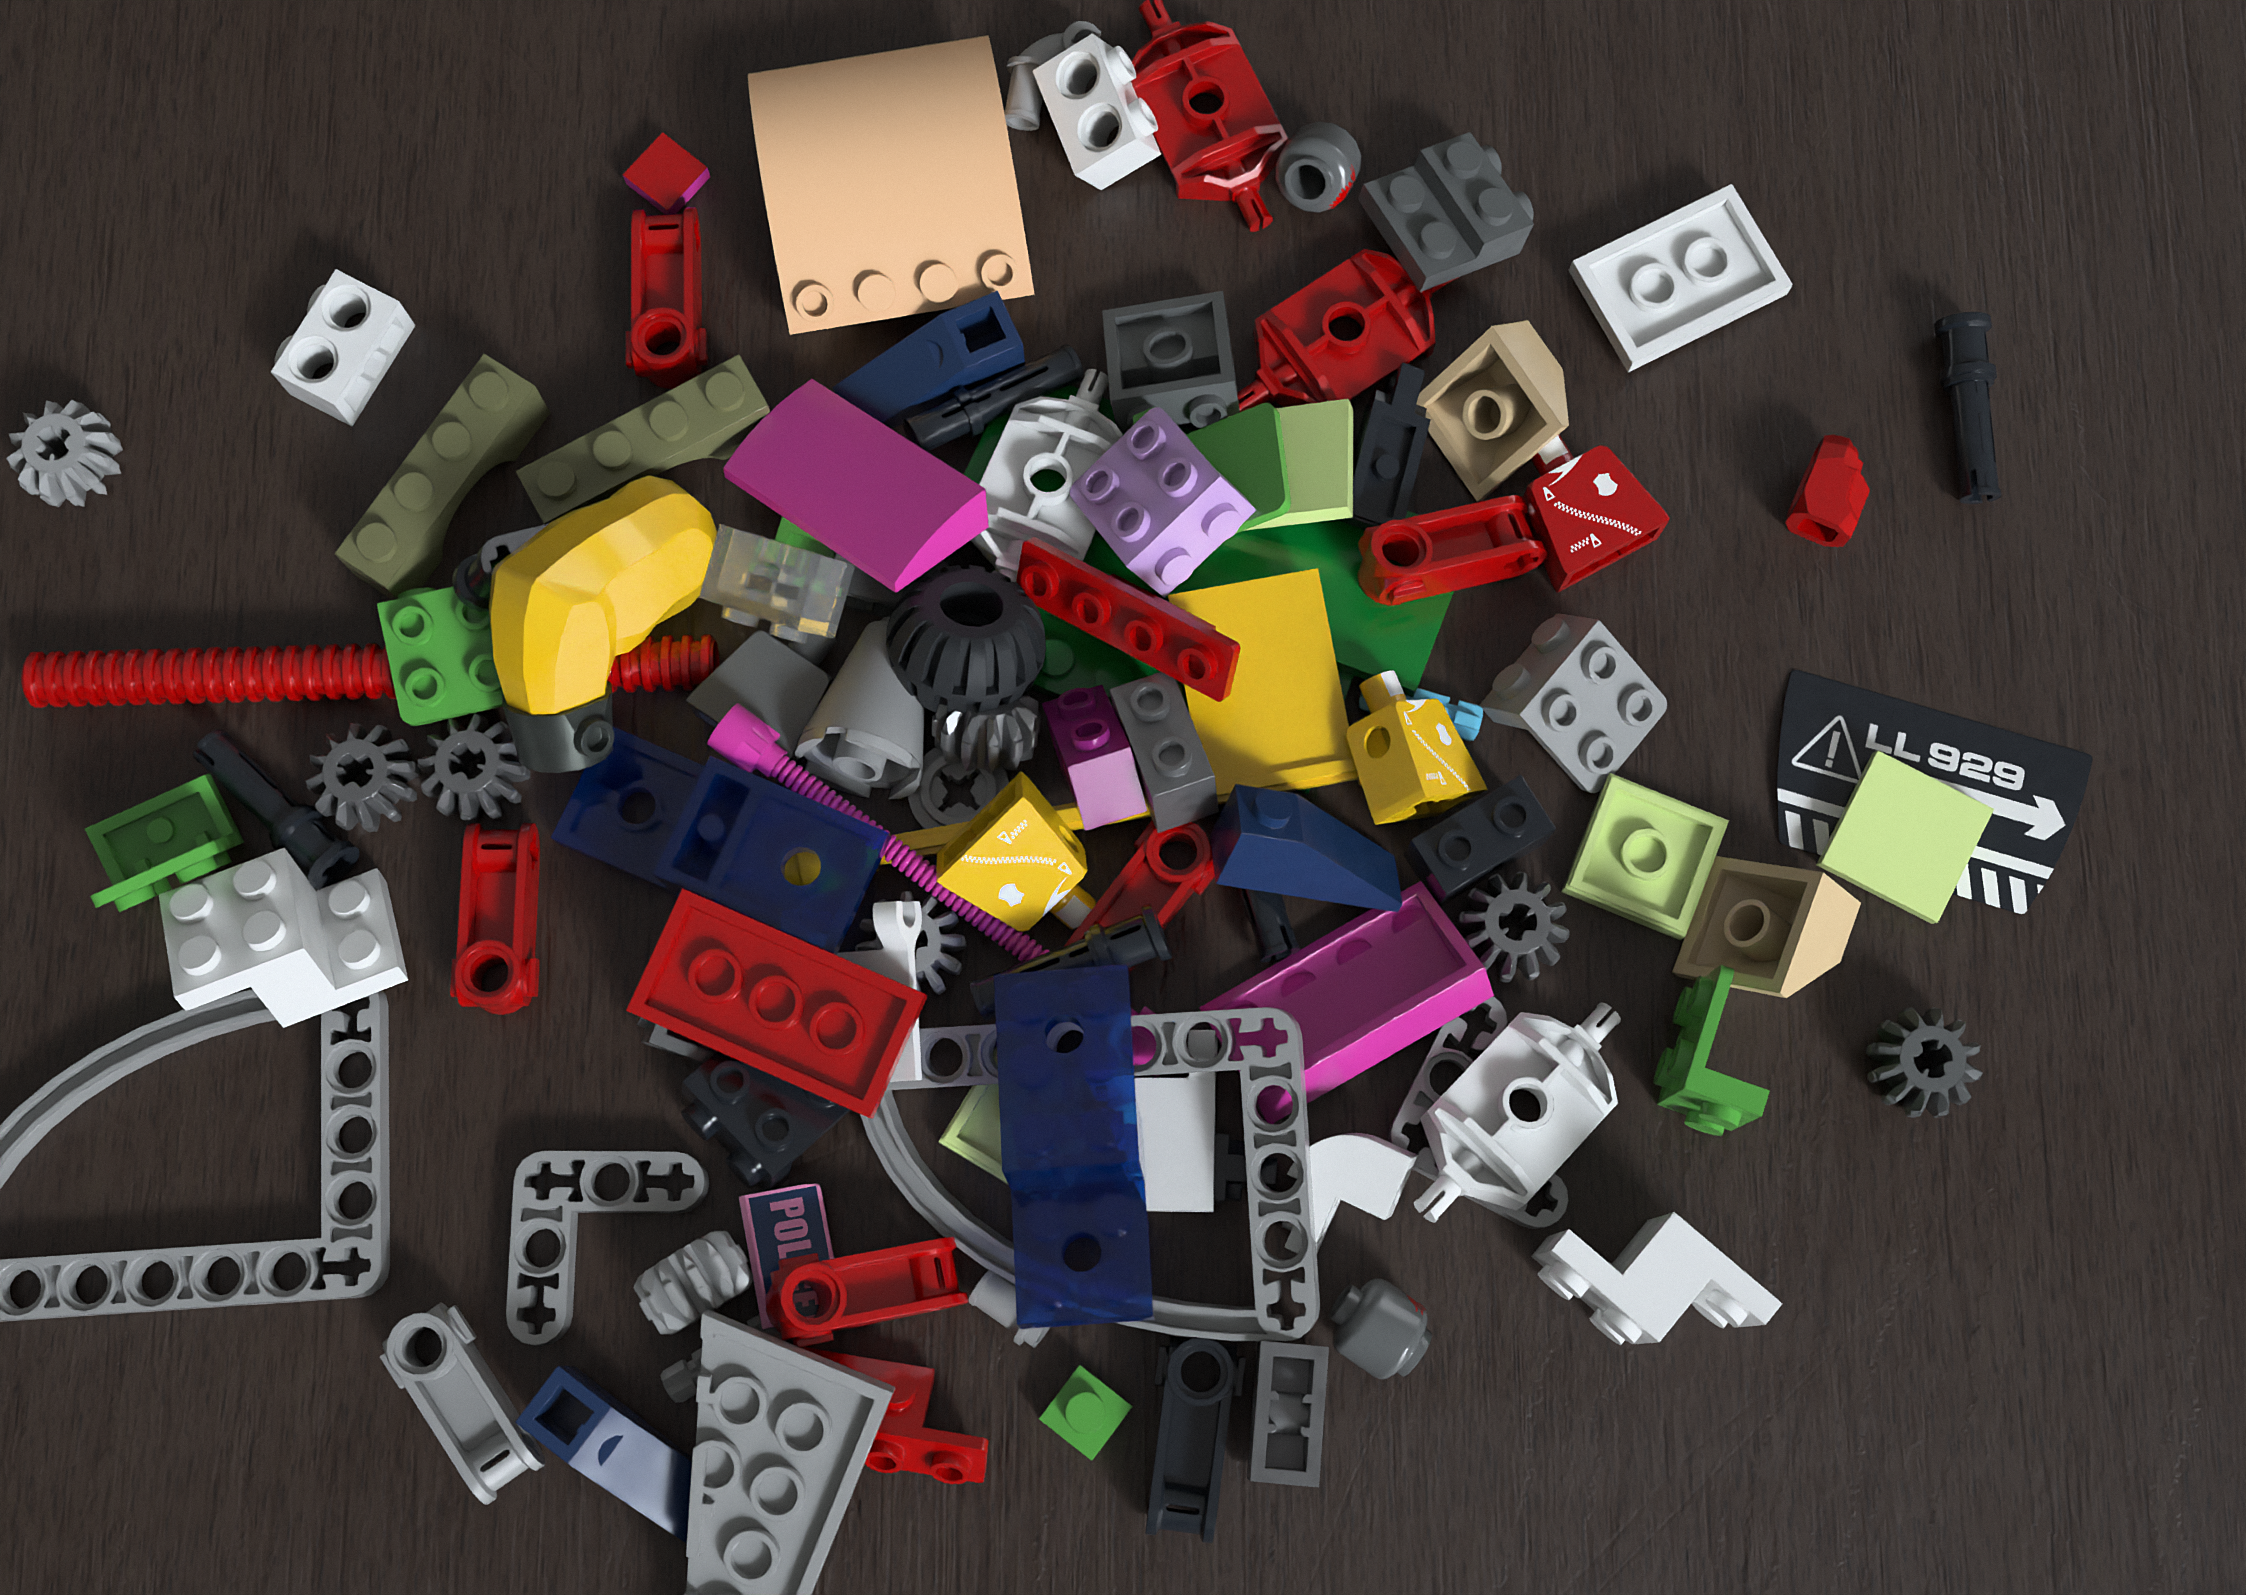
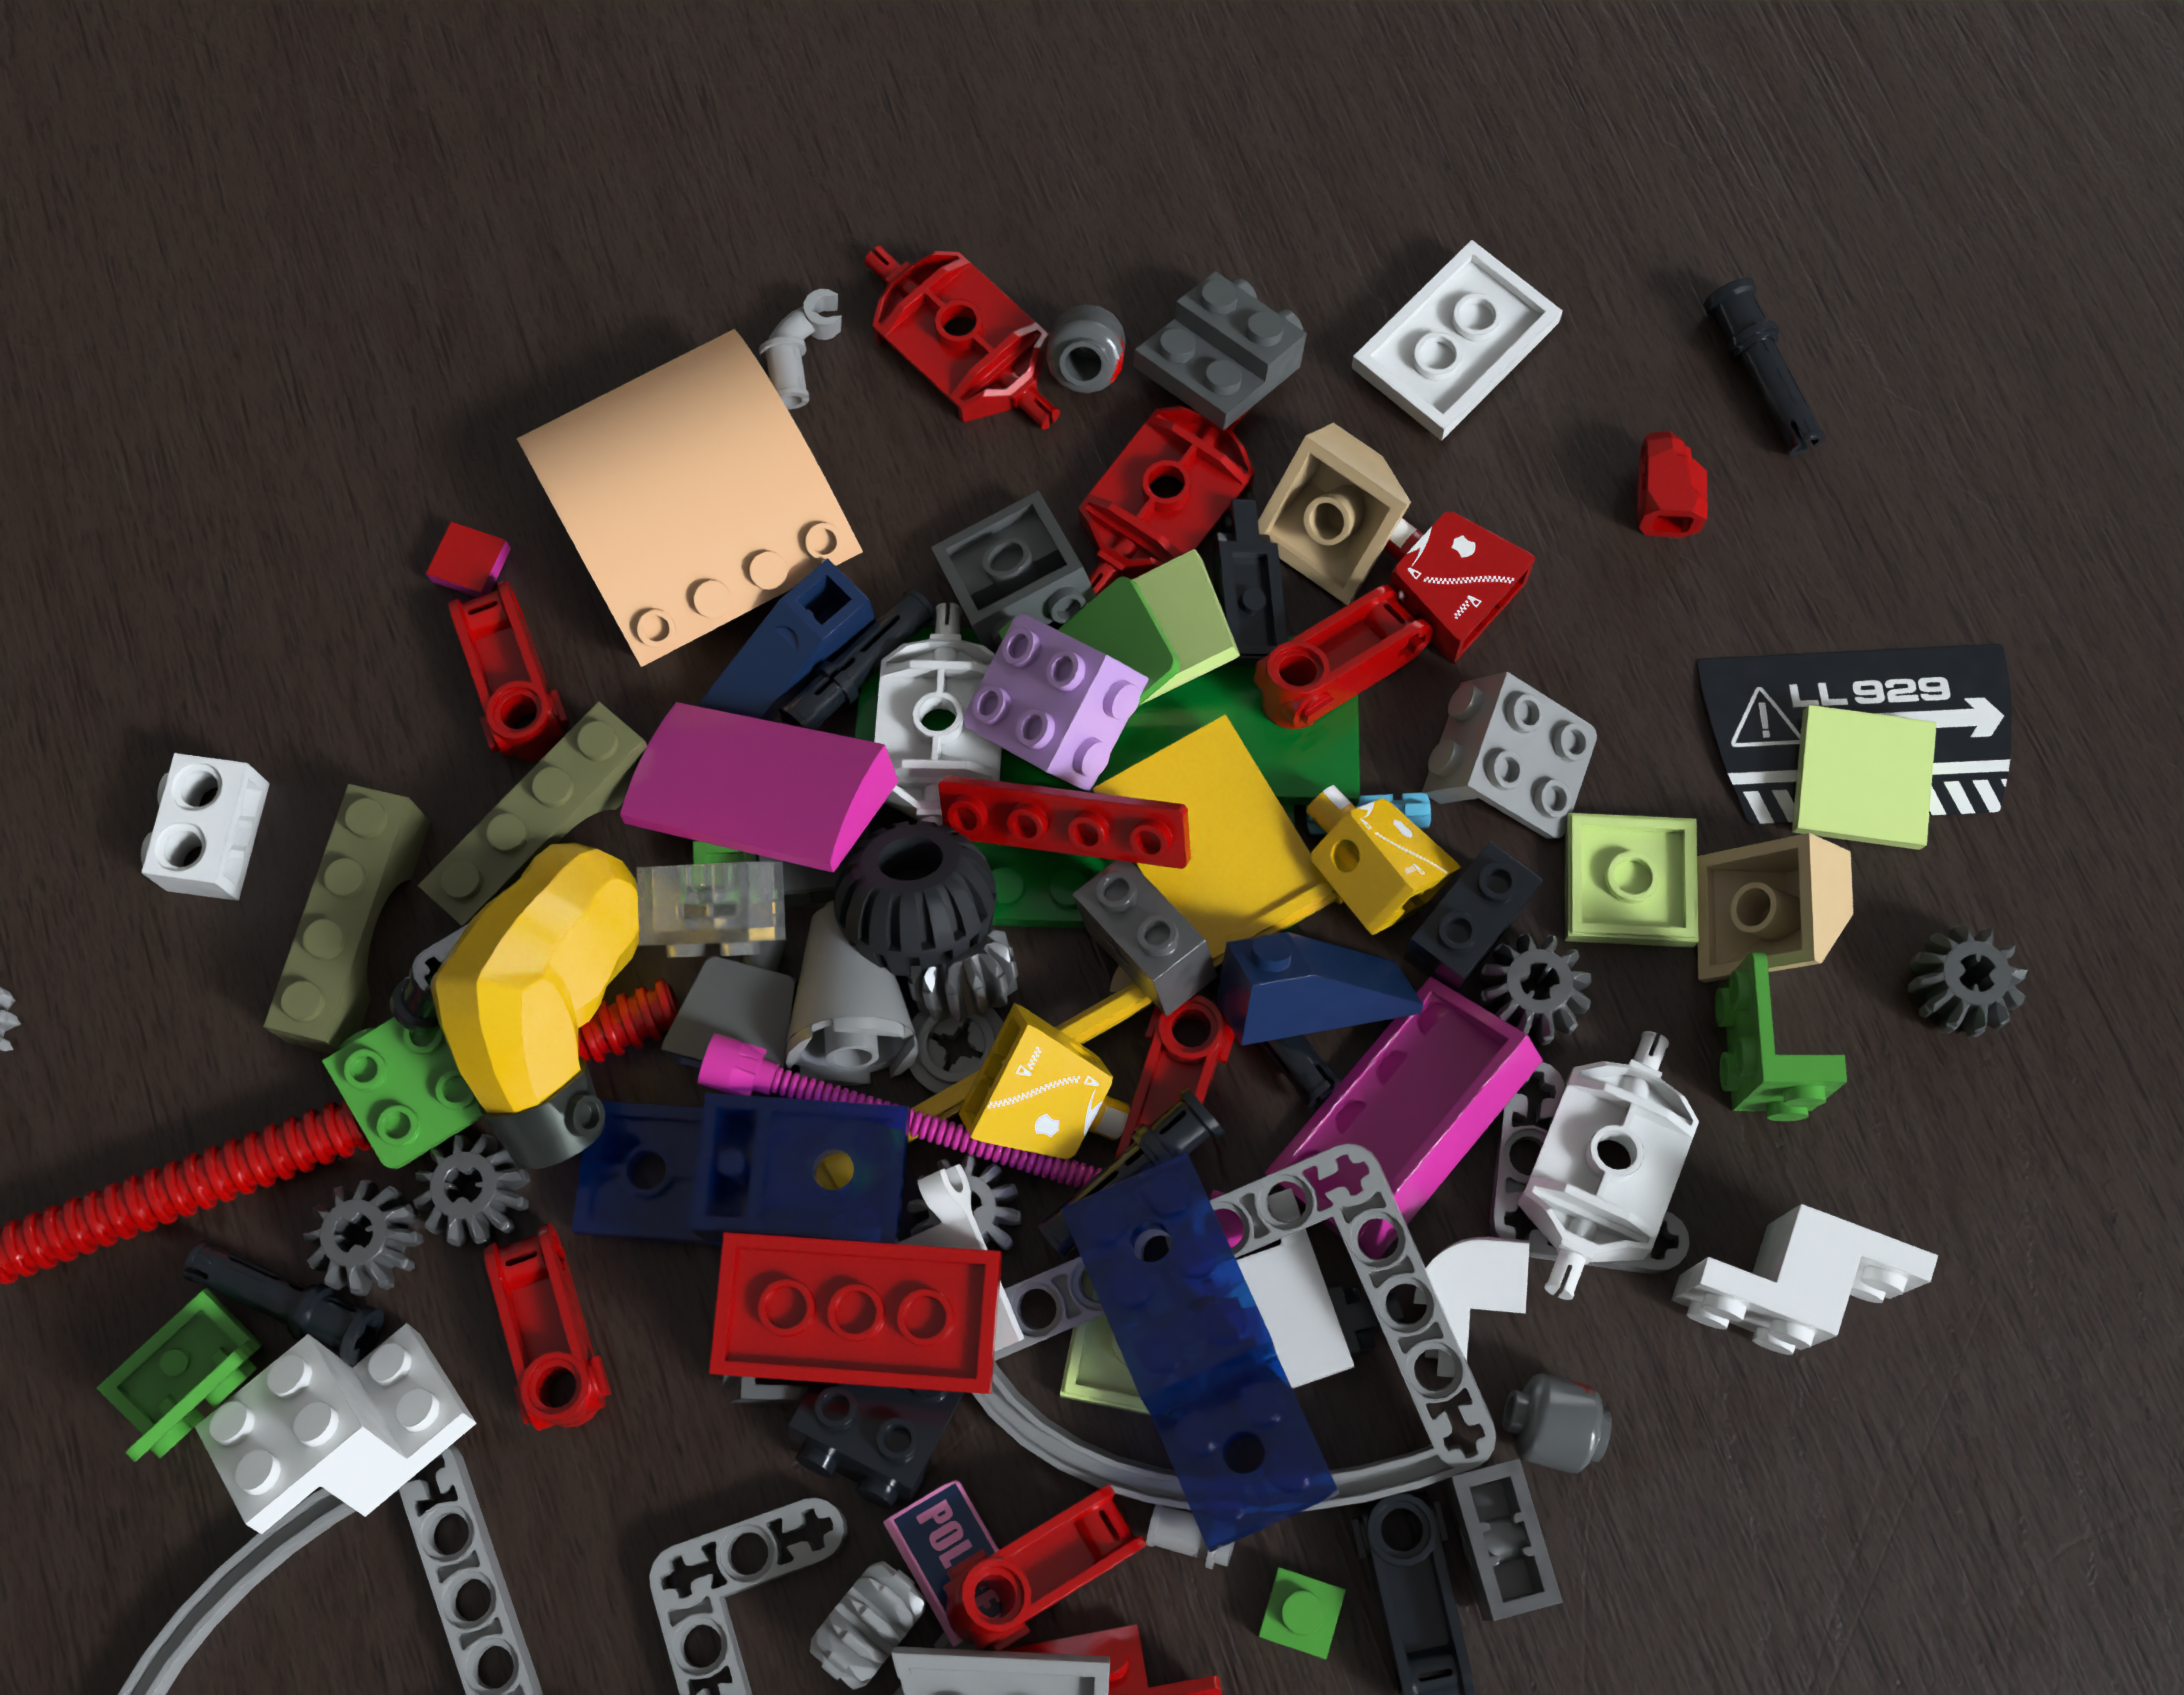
camera: 15 degrees left, 5 degrees down
(1089, 117) = (854, 375): white brick -> none
(1094, 756) = (1079, 965): magenta brick -> none

